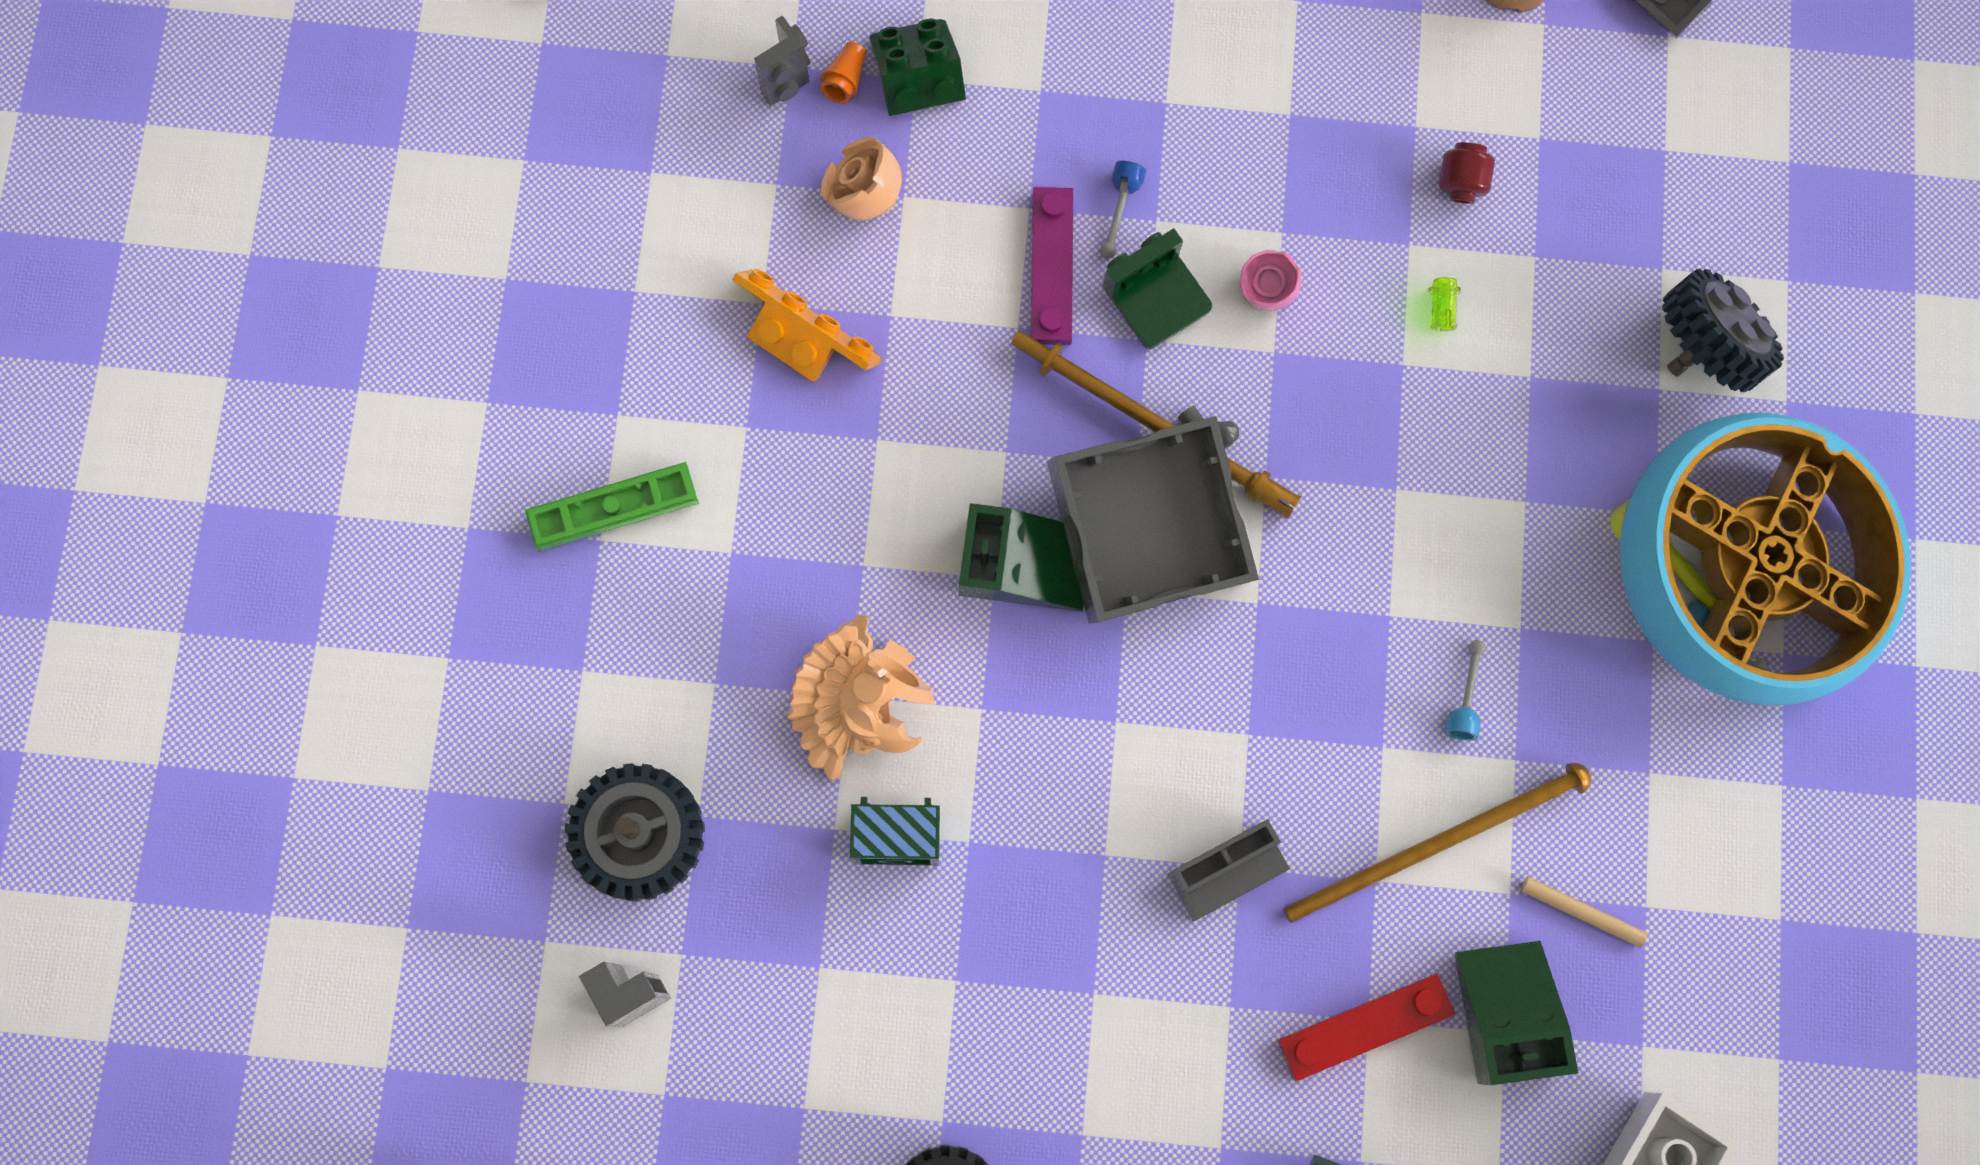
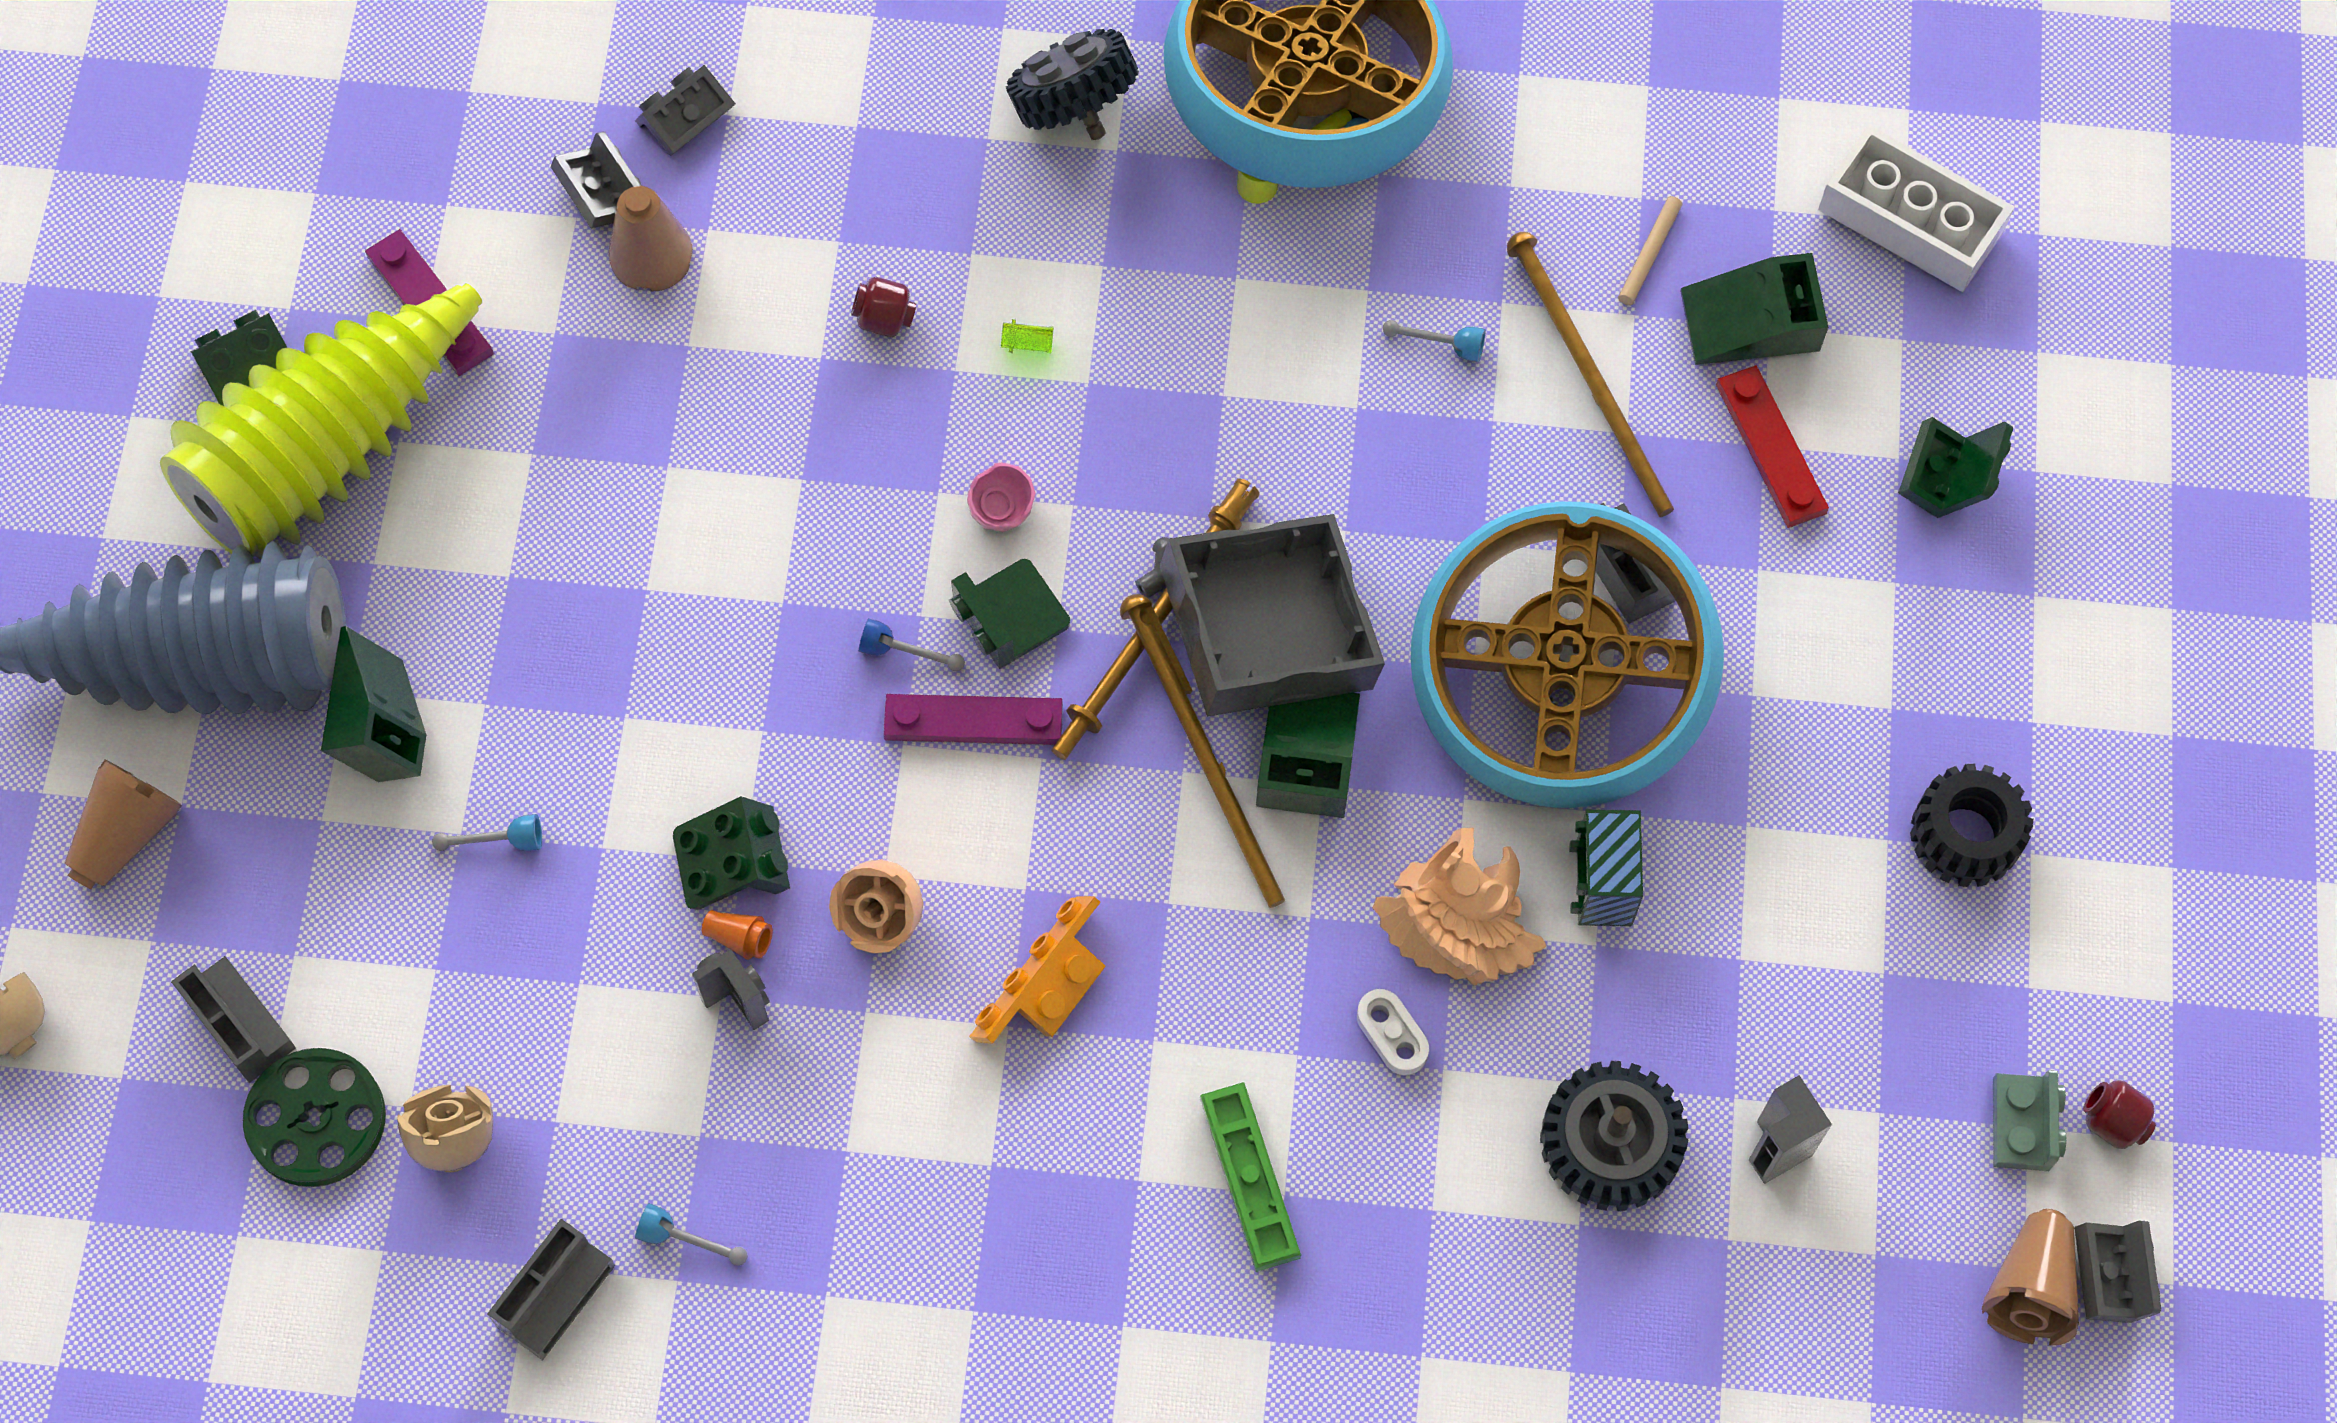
camera: 85 degrees left, 10 degrees down
(583, 19) = (657, 1226): none -> hinge
(743, 632) = (1394, 1033): none -> white plate
(990, 785) = (1578, 529): none -> pearl gold wheel
(1084, 437) = (1140, 611): none -> pearl gold bar

